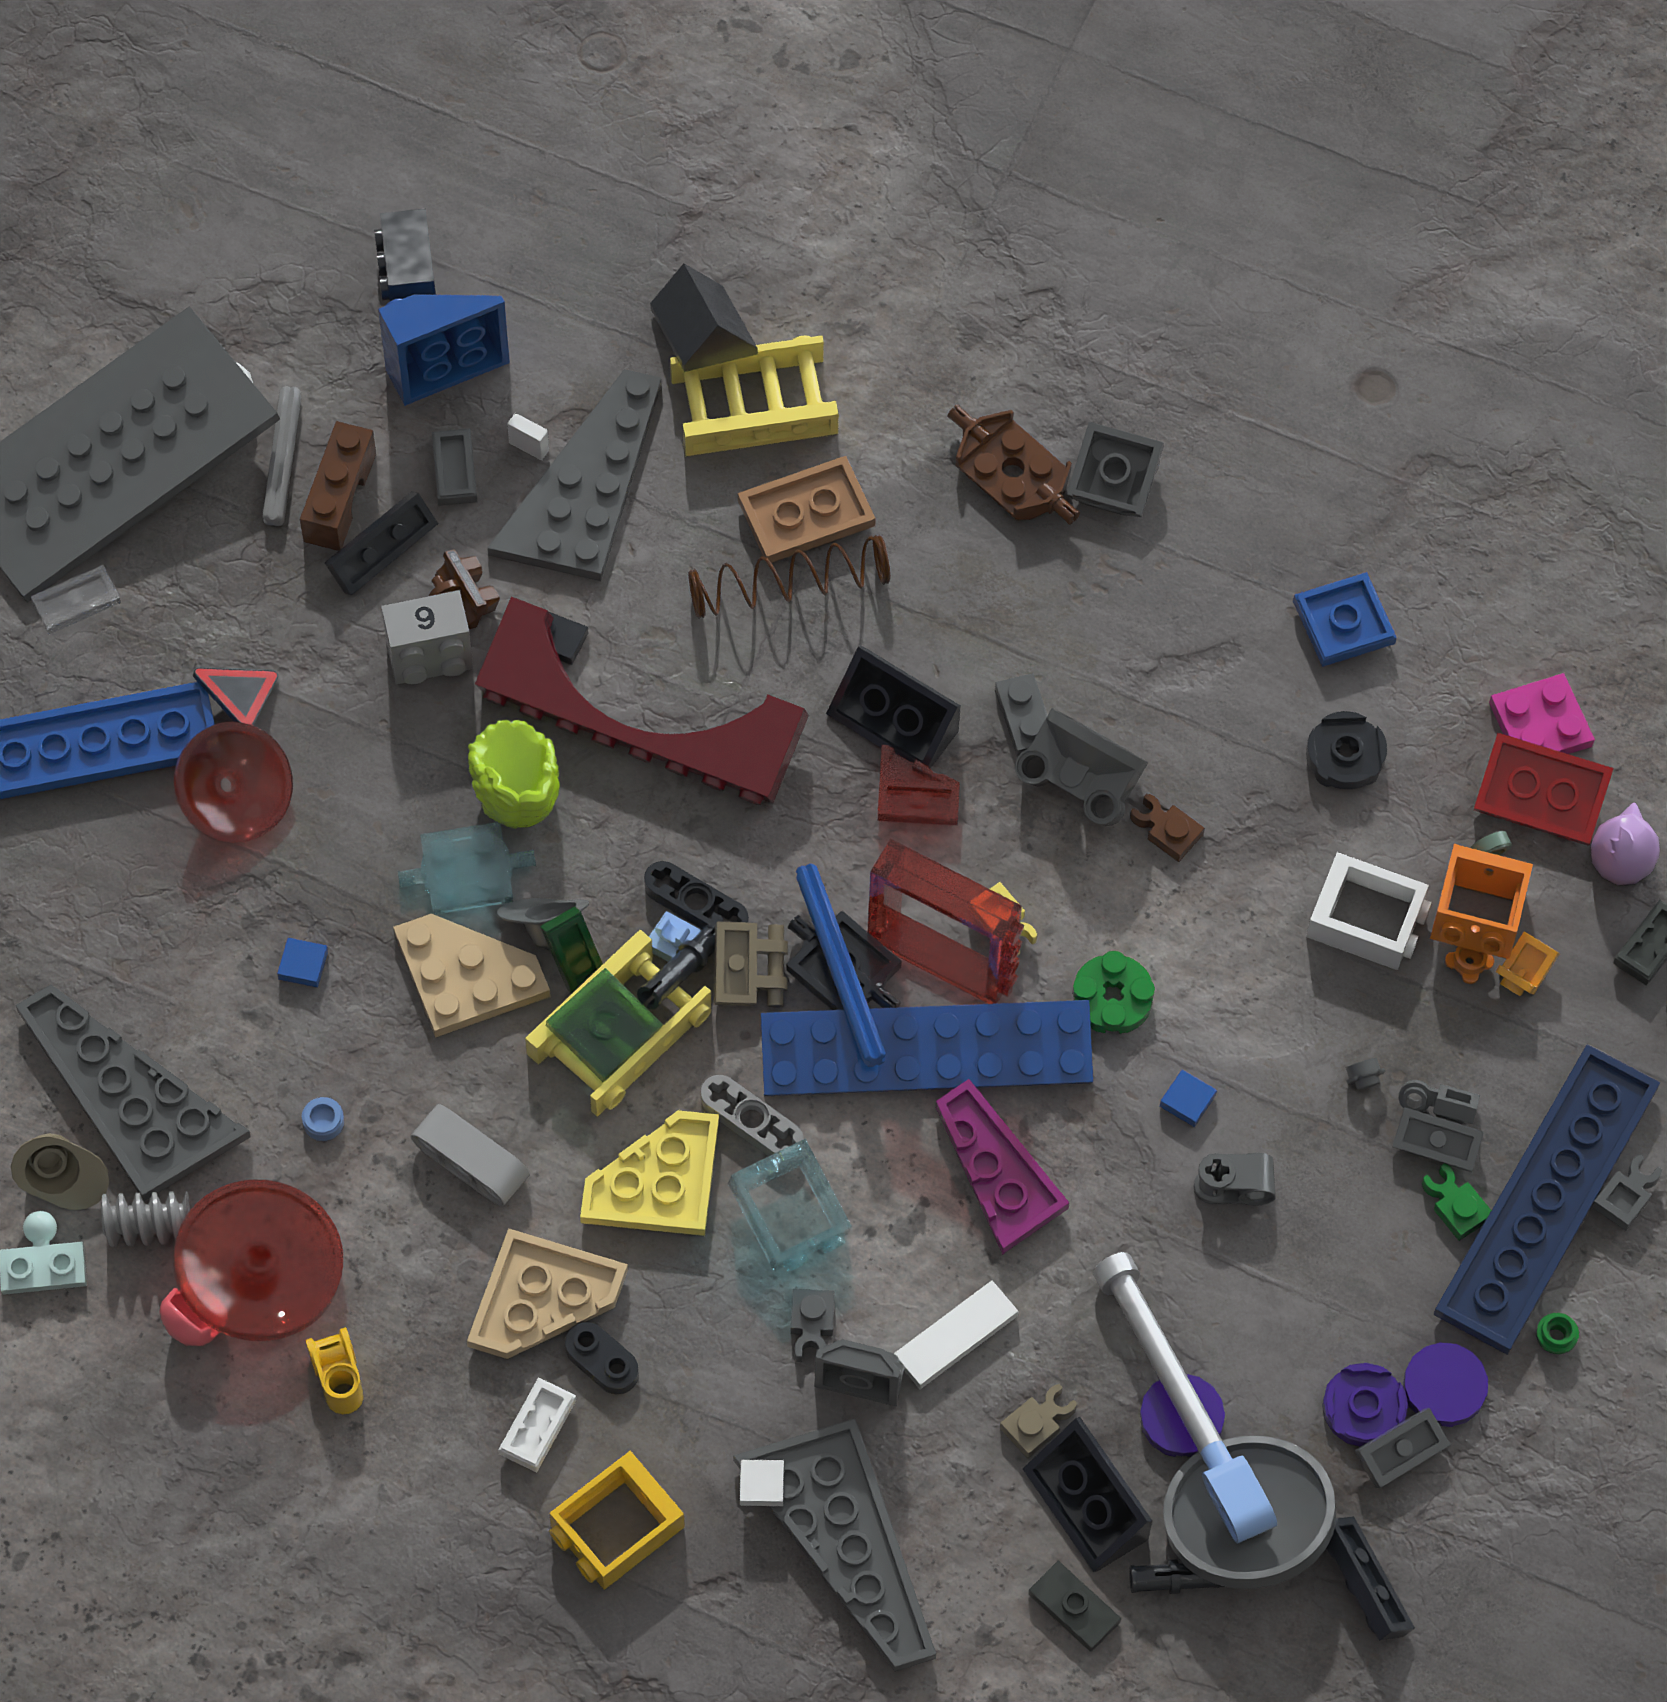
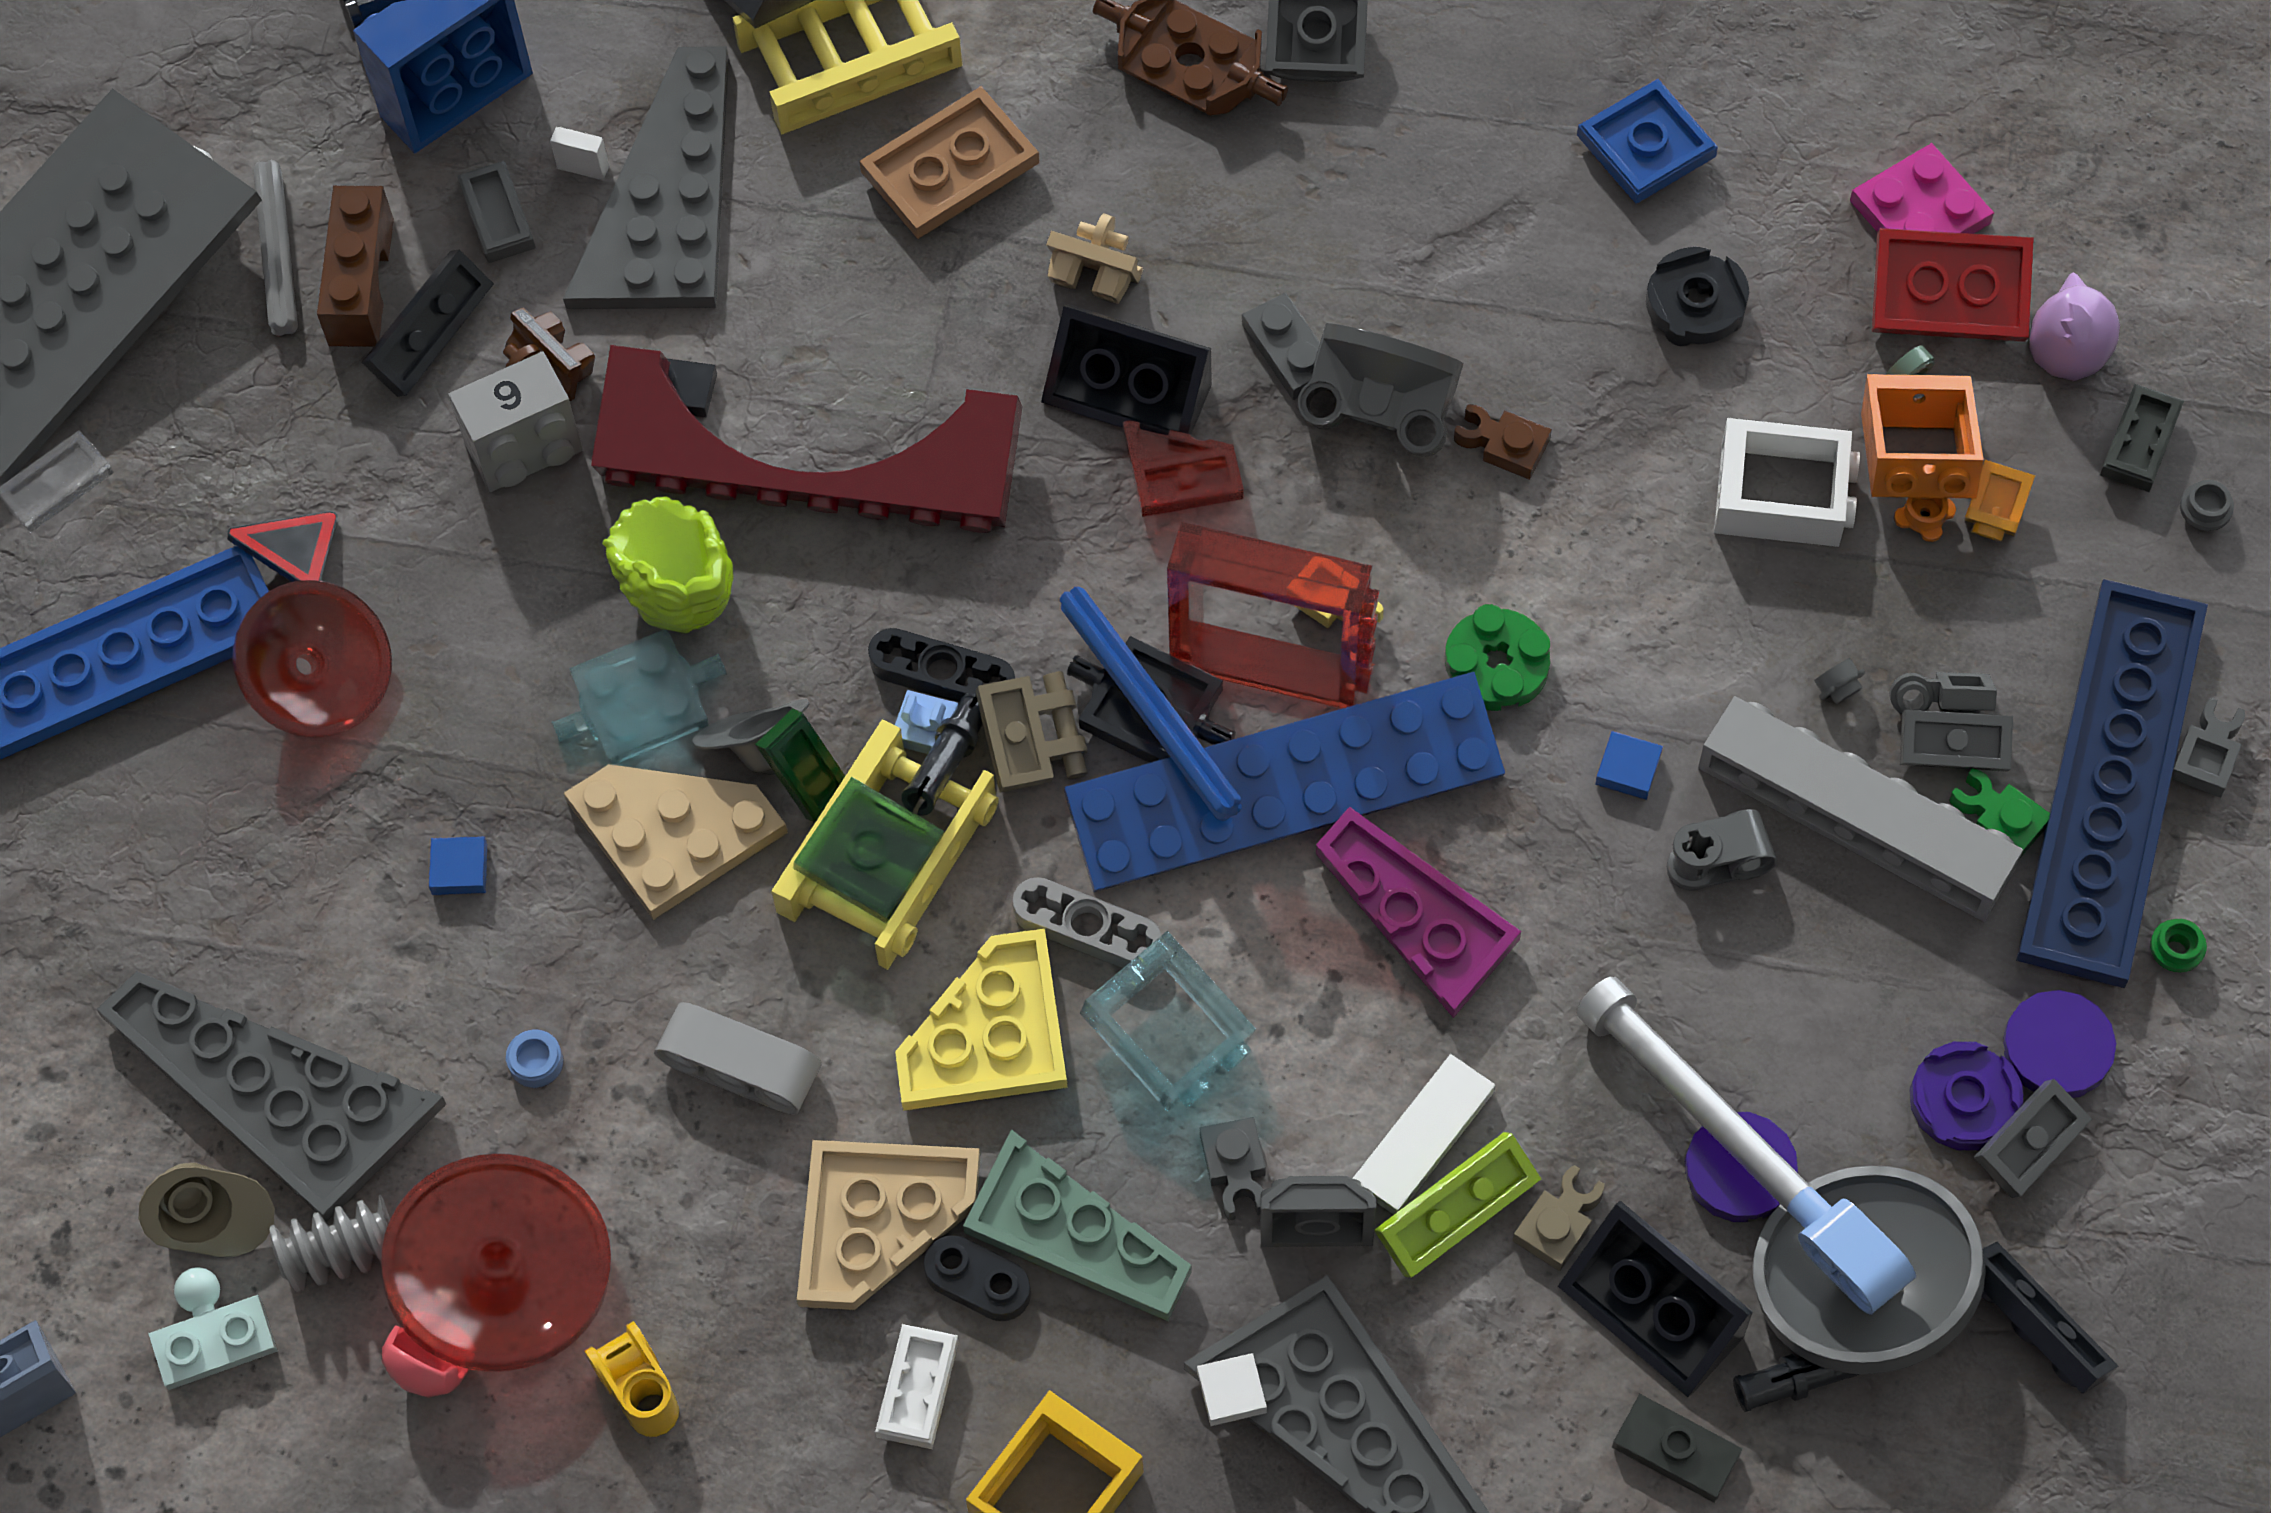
camera: 10 degrees left, 0 degrees up
(670, 1333) = (1058, 1224): none -> sand green wing
(881, 560) = (840, 284): reddish brown piece -> none
(908, 624) = (1113, 267): none -> tan hips
(965, 1391) = (1457, 1204): none -> lime plate
(1350, 1172) = (1860, 807): none -> light grey brick

